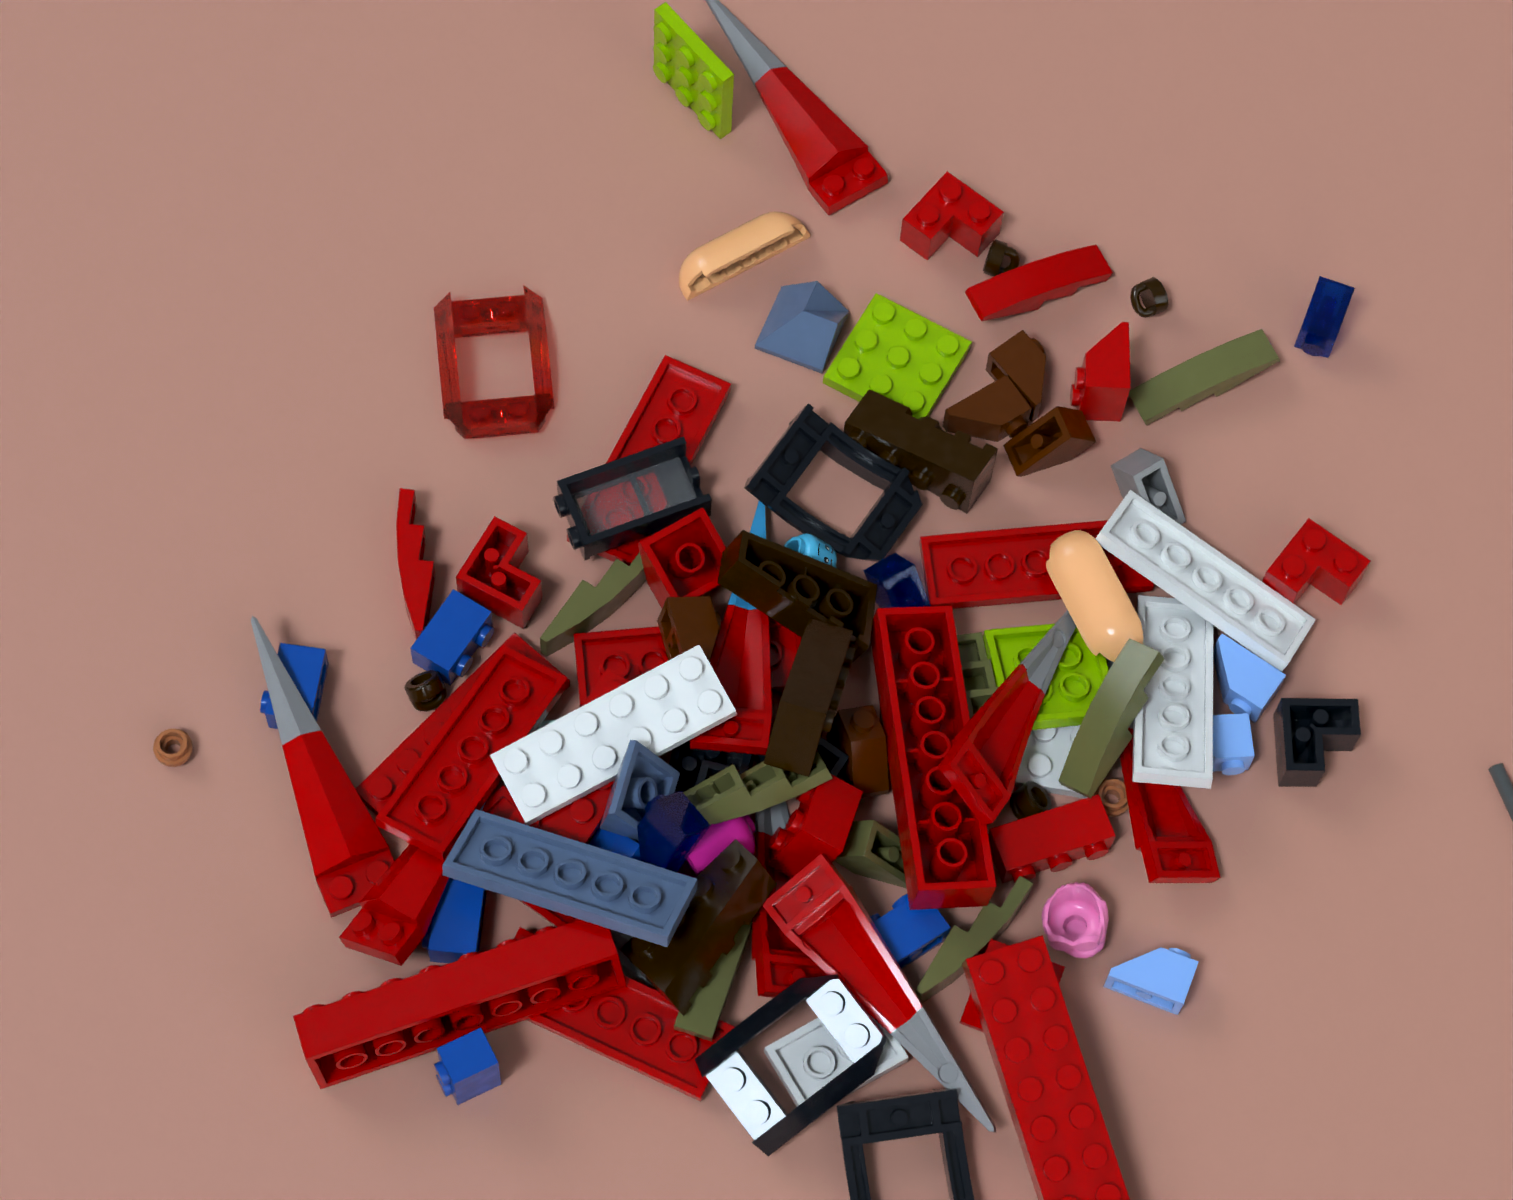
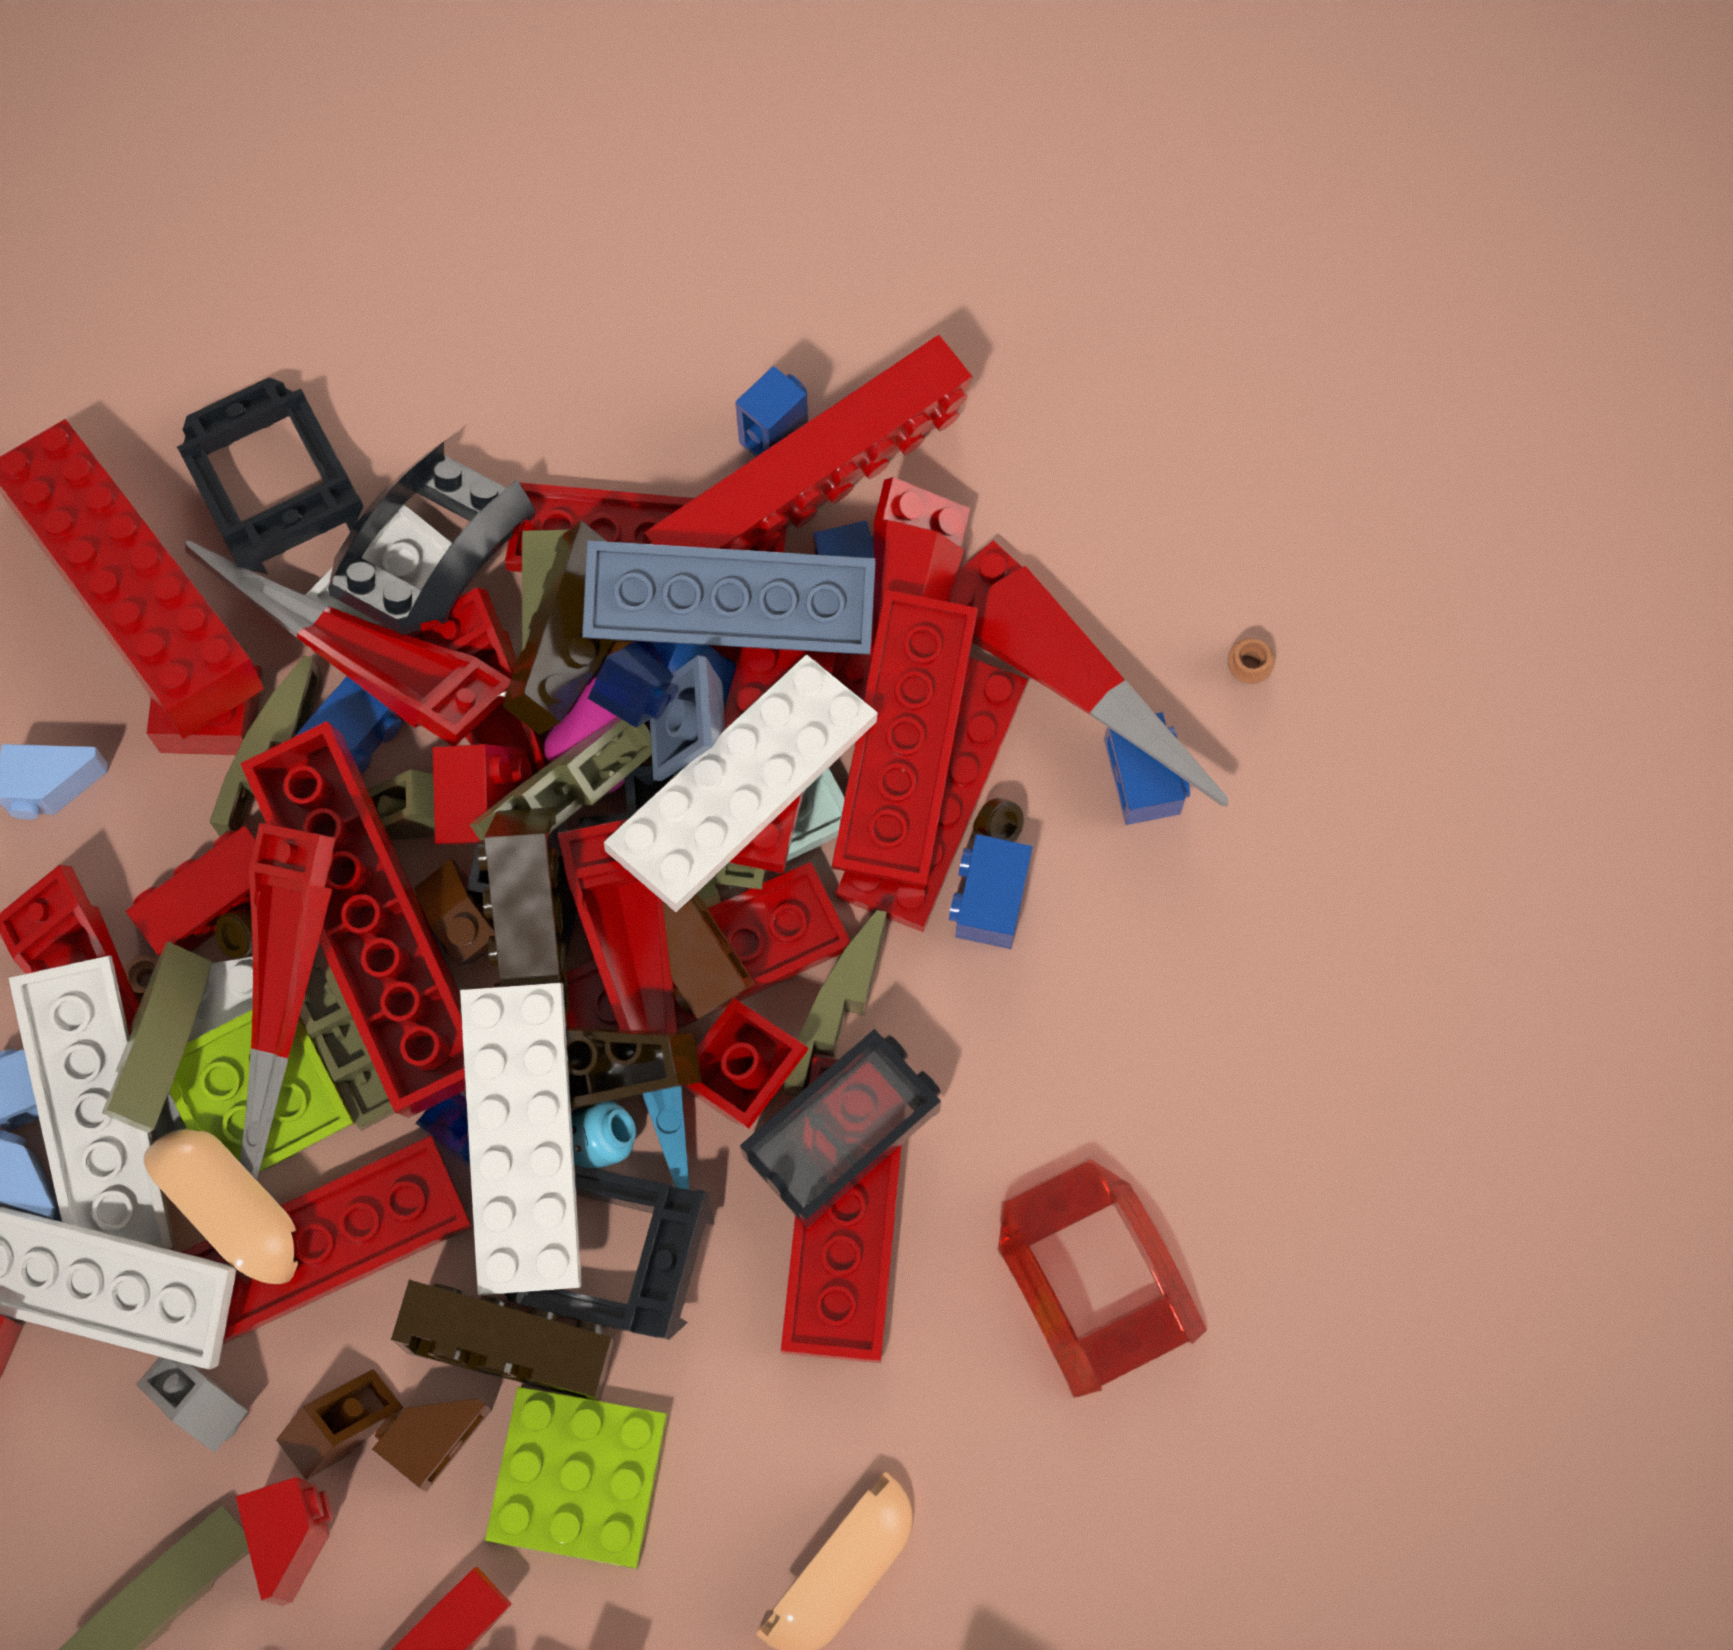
camera: 165 degrees right, 5 degrees up
(415, 573) = (1070, 950): red slope -> none
(493, 575) = (973, 969): red brick -> none
(803, 325) = (718, 1482): sand blue slope -> none
(865, 553) = (520, 1139): none -> white plate
(1024, 364) = (403, 1517): reddish brown slope -> none
(1076, 920) = (149, 806): bright pink hair -> none

